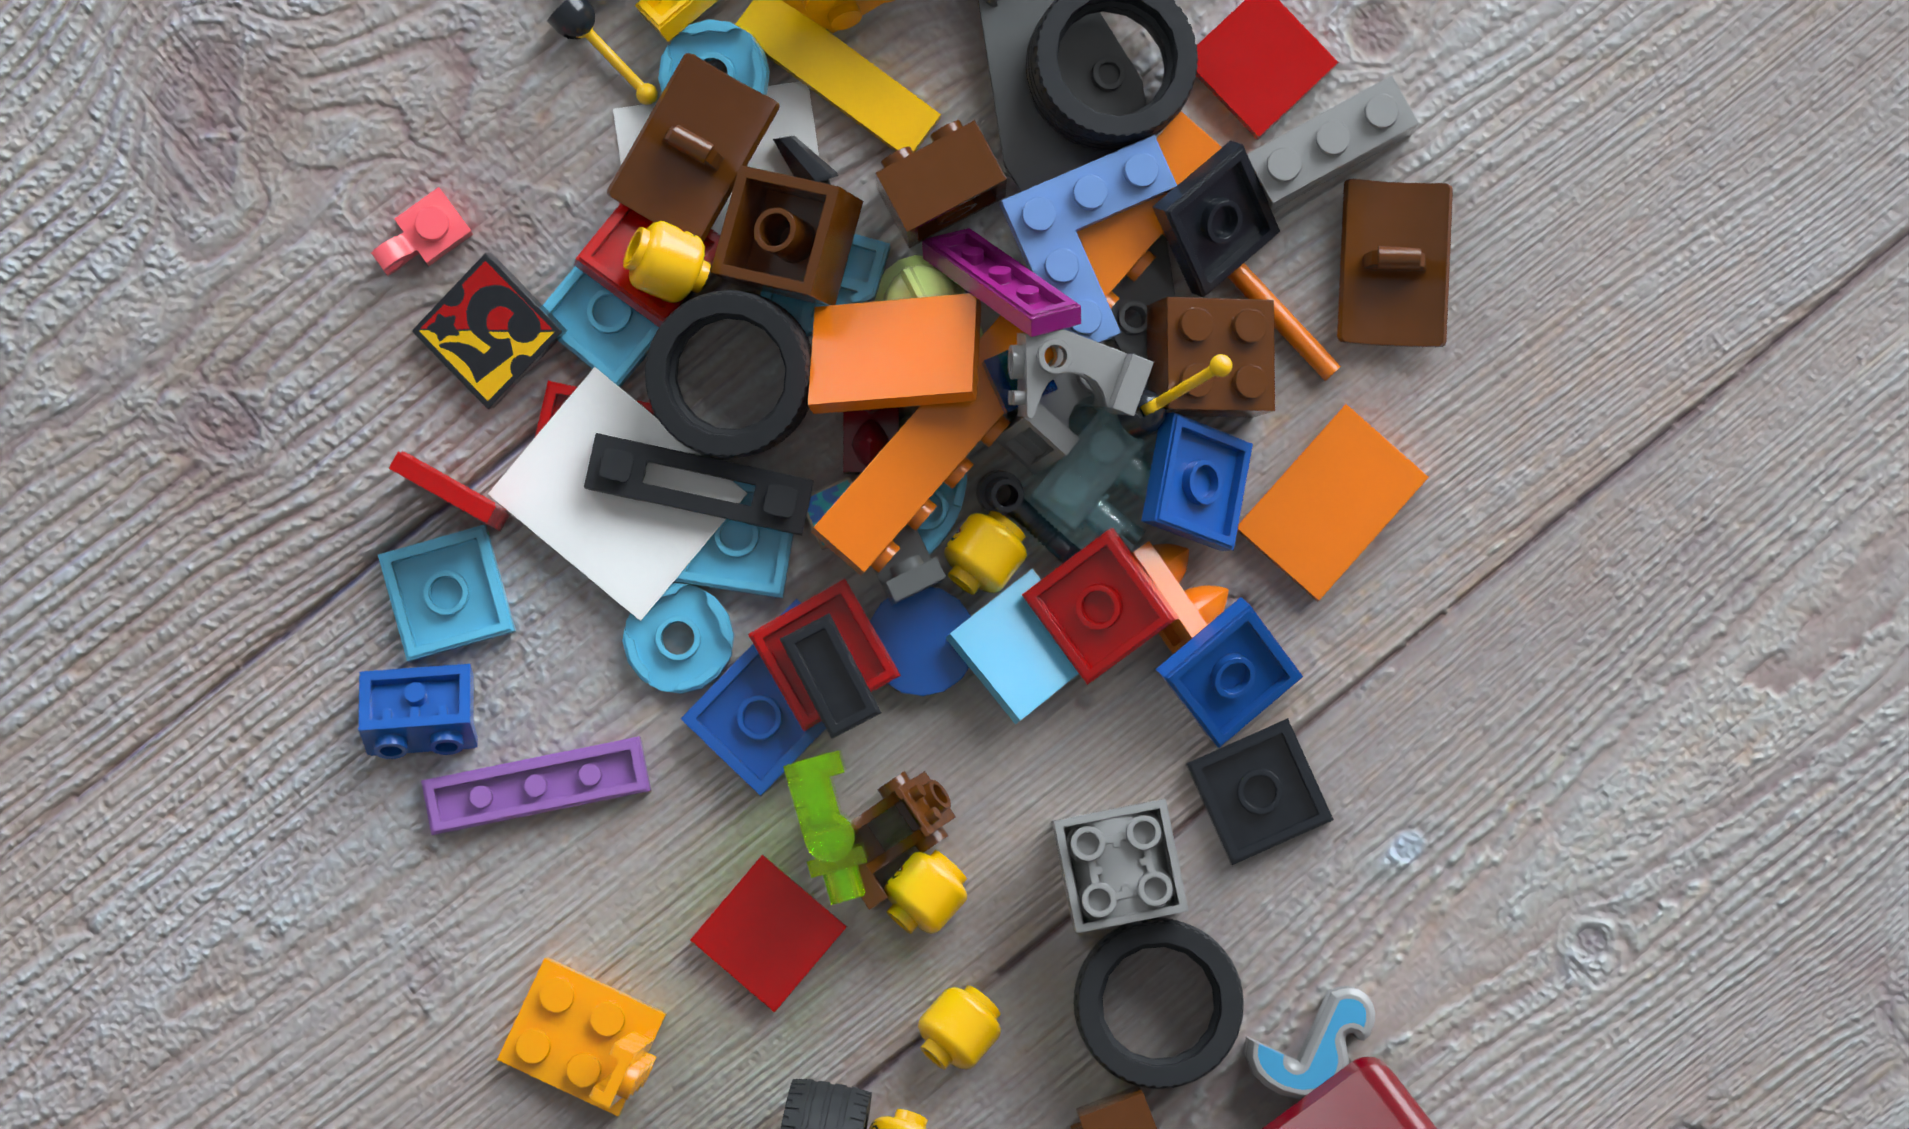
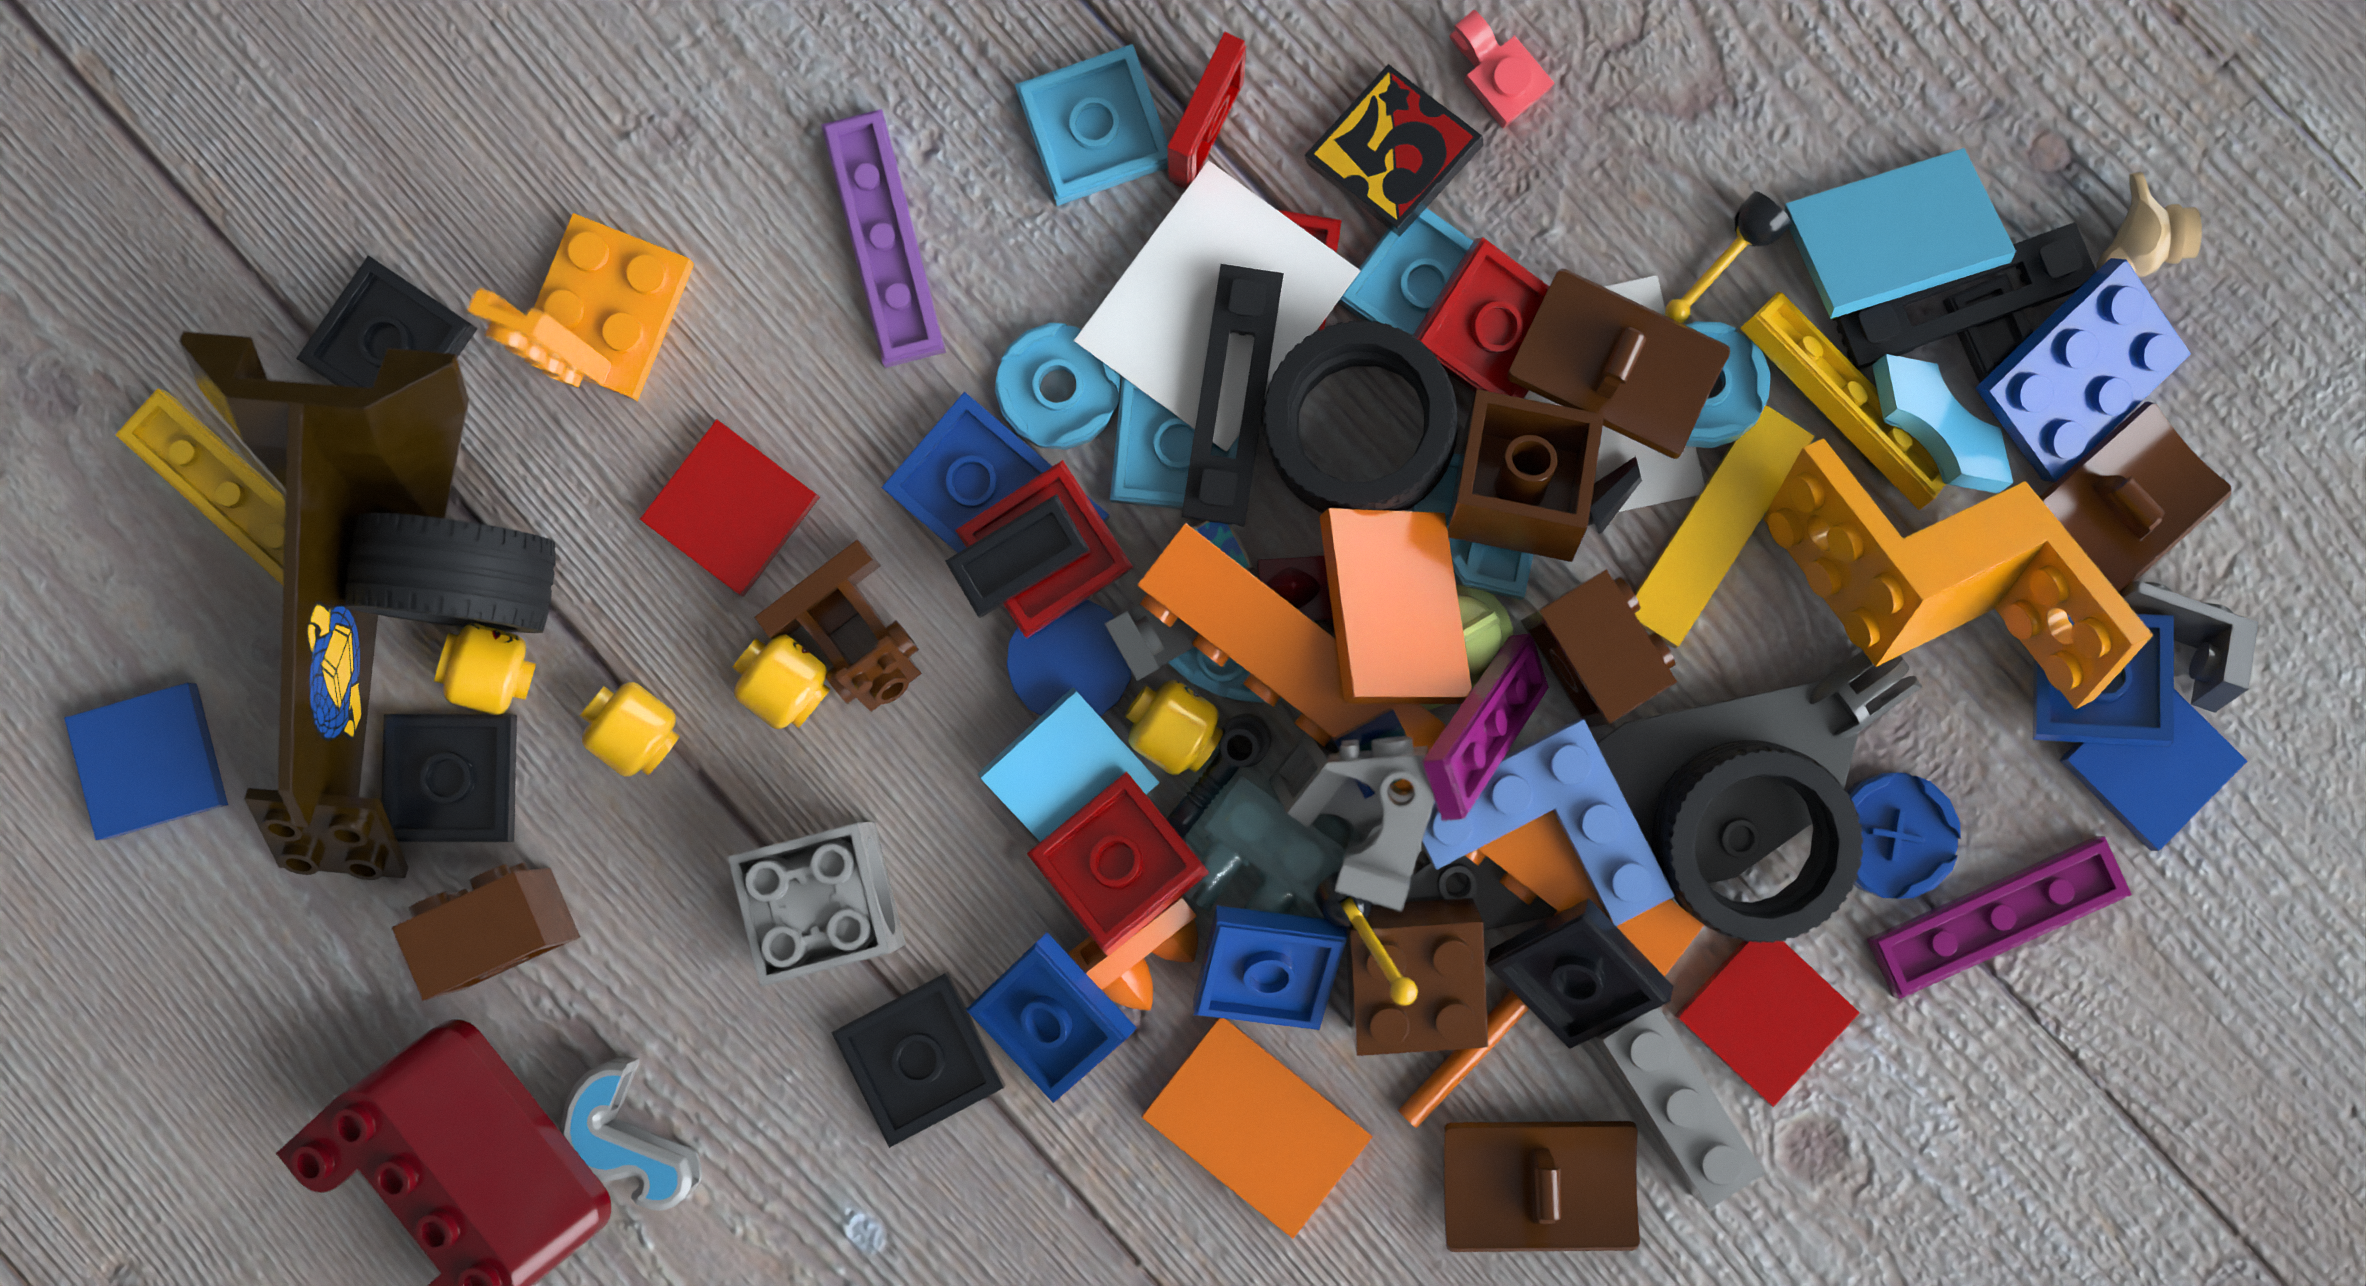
camera: 85 degrees right, 0 degrees up
(417, 710) = (959, 97): blue bracket -> none
(666, 262) = (1485, 338): yellow head -> none
(825, 827) = (840, 559): clear neon green hips -> none
(1213, 1044) = (587, 967): black tyre -> none

